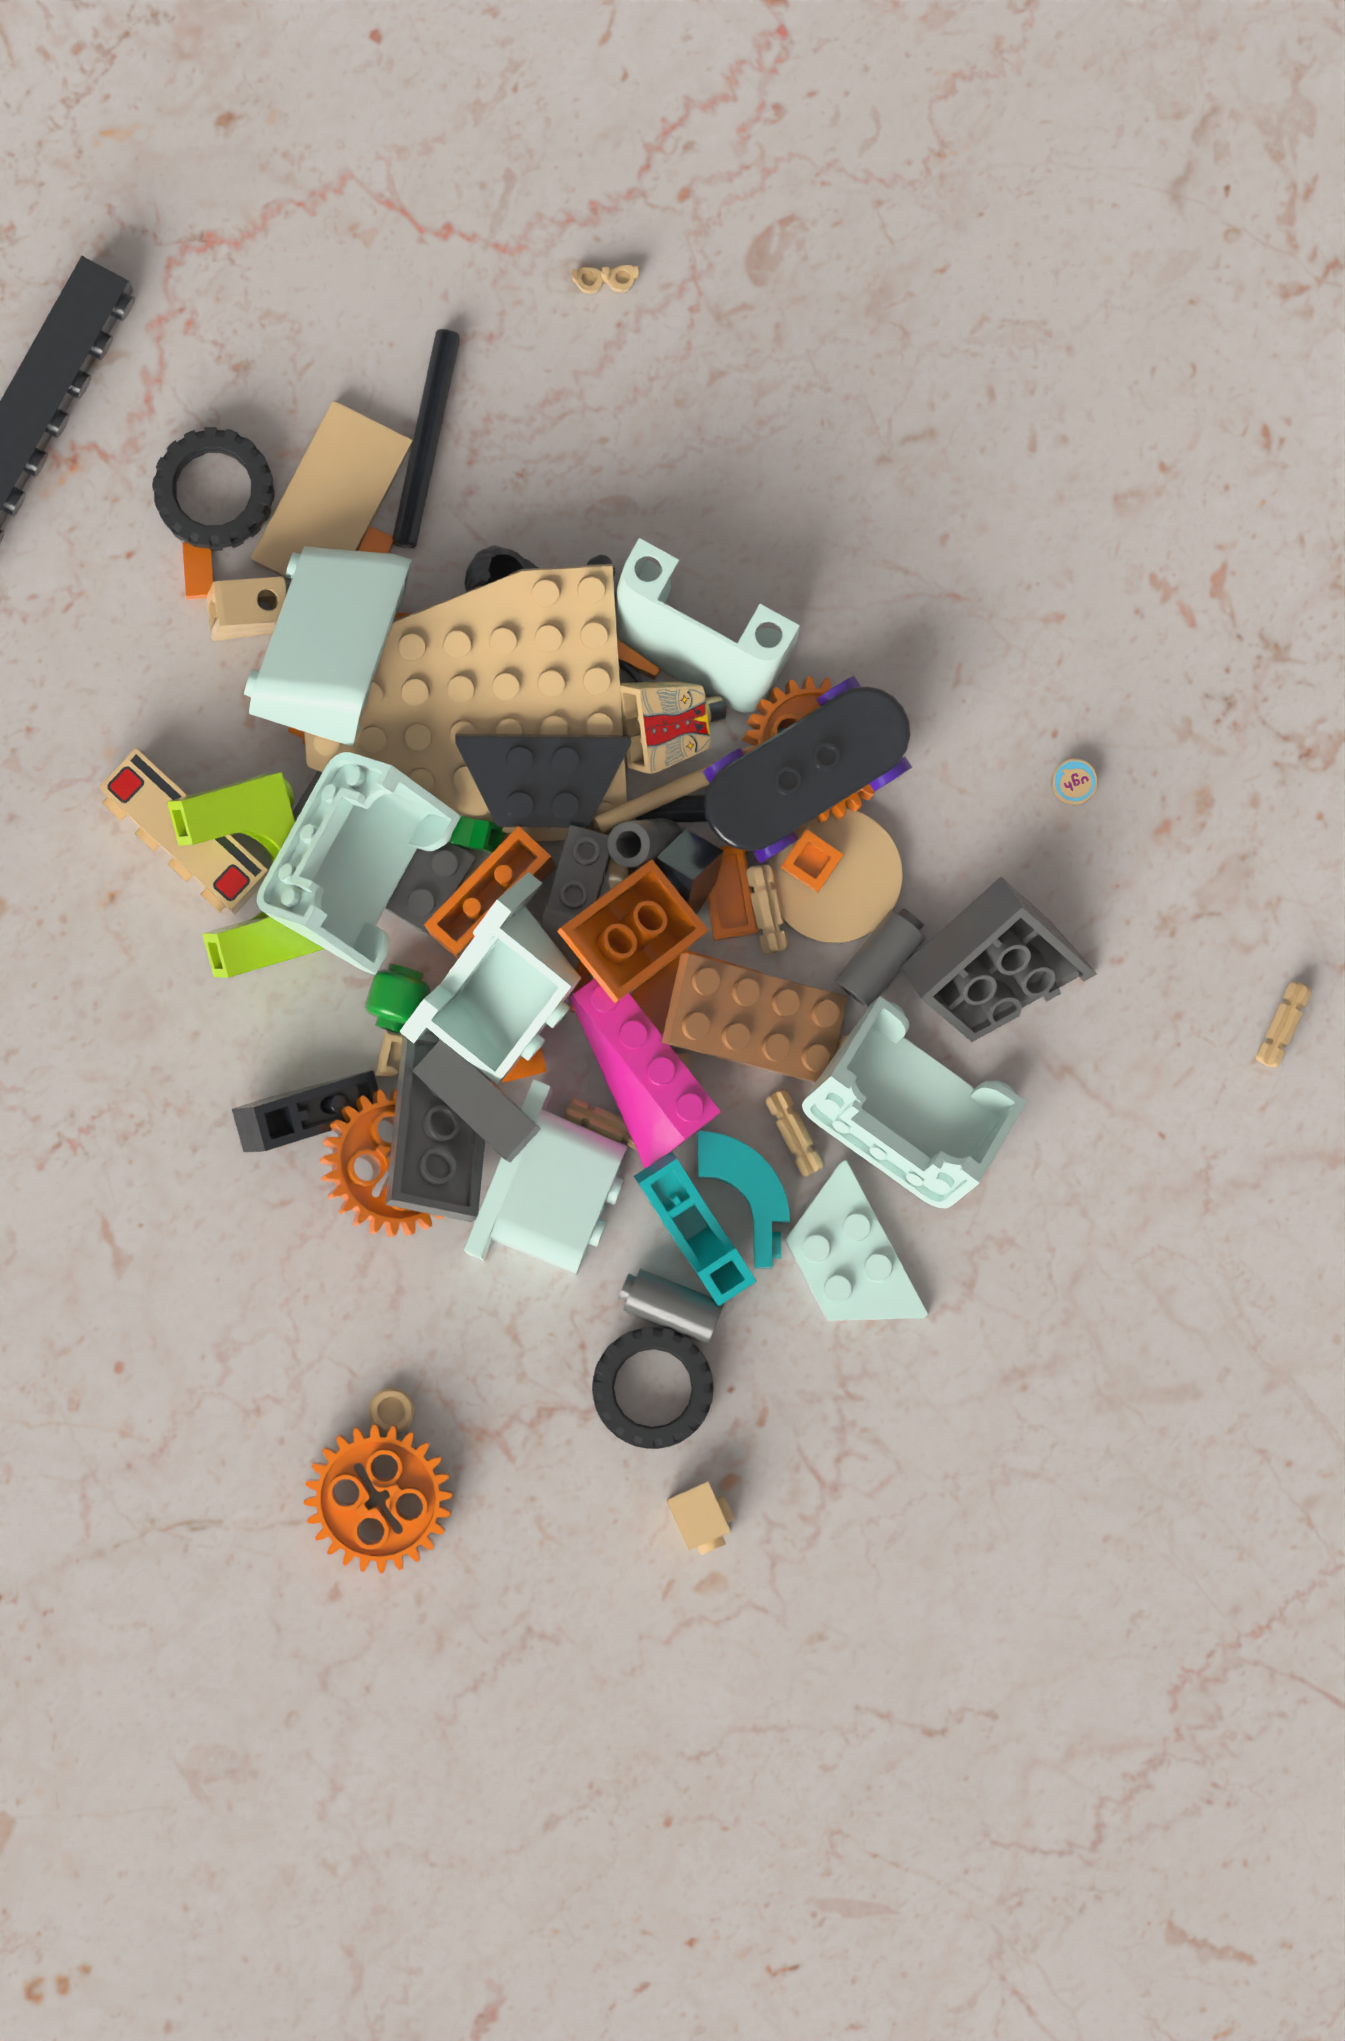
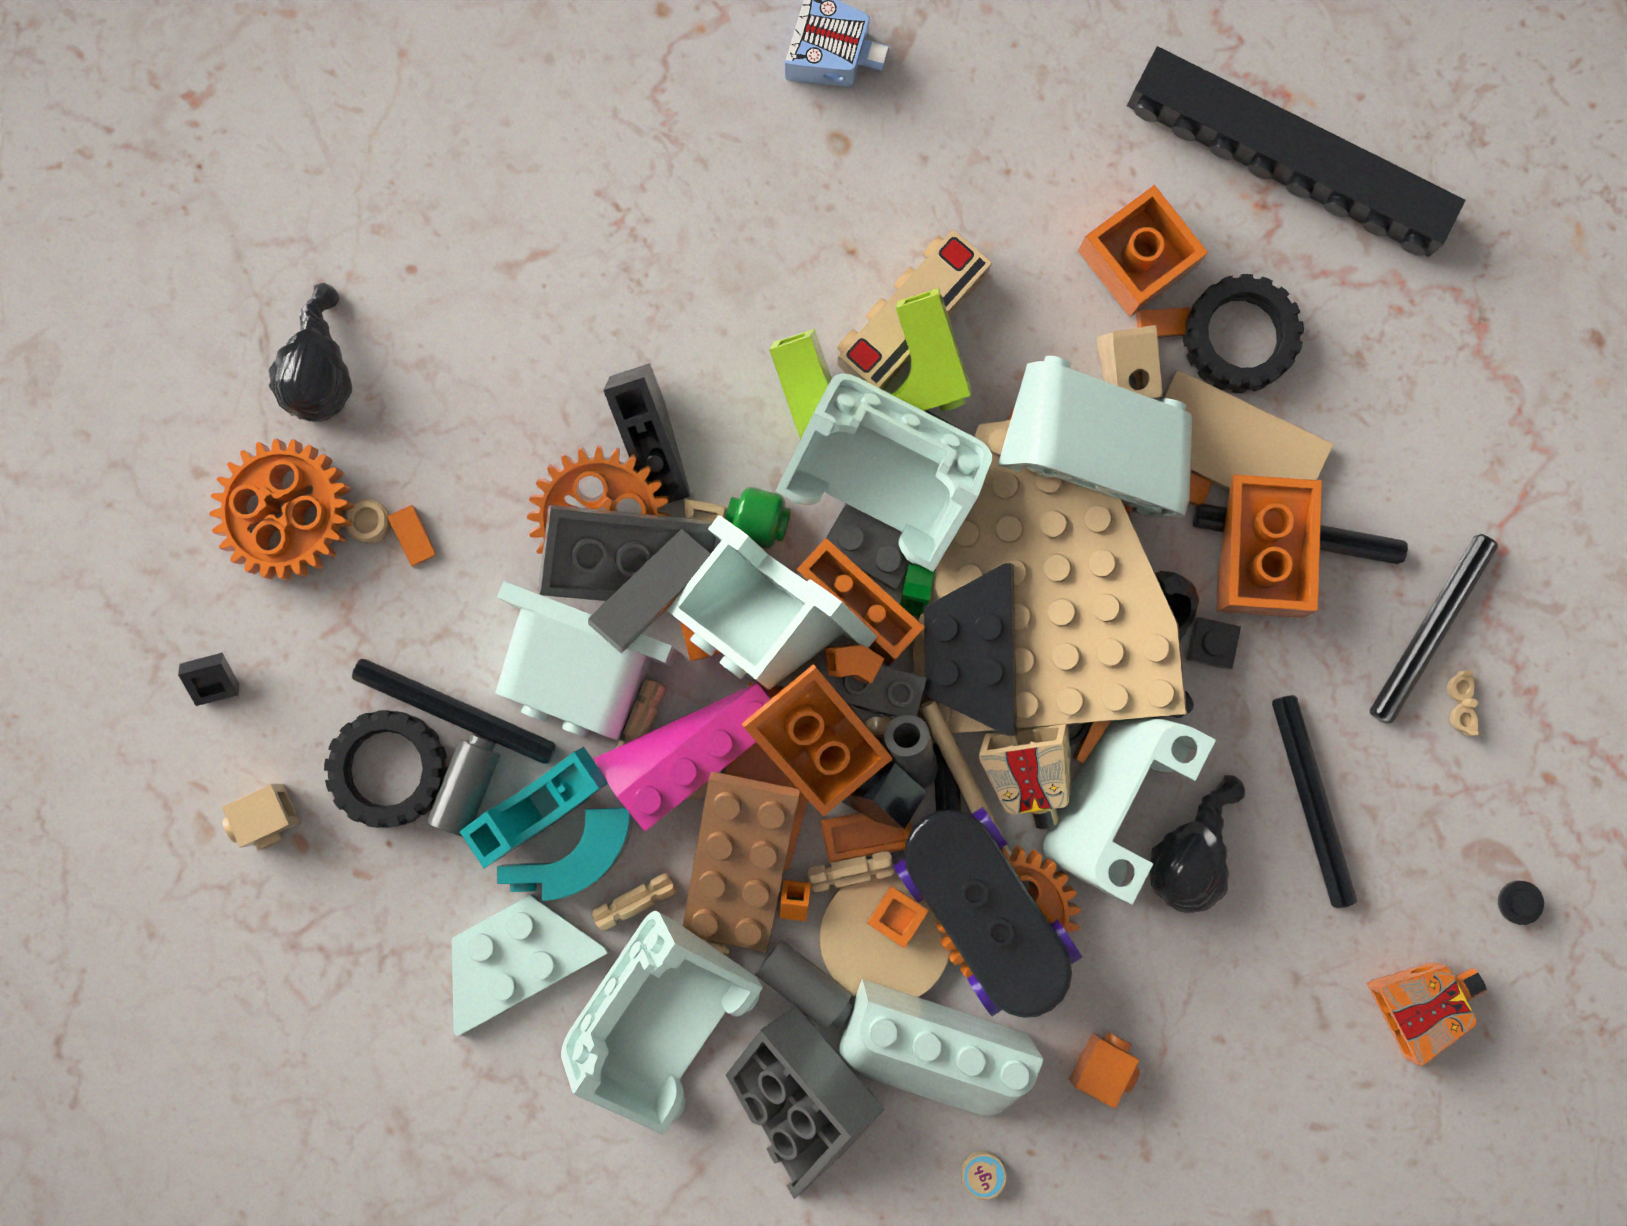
camera: 85 degrees right, 0 degrees up
(126, 591) = (1142, 250): none -> orange brick
(233, 1465) = (310, 369): none -> black hair
(408, 1364) = (412, 535): none -> orange piece
(441, 471) = (1270, 547): none -> orange slope
(527, 305) = (1433, 628): none -> black axle
(538, 531) = (1213, 643): none -> black plate
(553, 895) = (853, 661): none -> orange piece
(556, 1573) = (208, 679): none -> black plate
(593, 1319) = (453, 711): none -> black axle
(703, 435) = (1314, 801): none -> black axle
(763, 563) = (1191, 861): none -> black hair
(802, 967) = (794, 909): none -> orange piece
(809, 231) = (1520, 902): none -> black plate
(912, 331) = (1427, 1007): none -> torso
(948, 825) = (937, 1051): none -> light aqua windscreen
(968, 655) = (1106, 1068): none -> orange brick

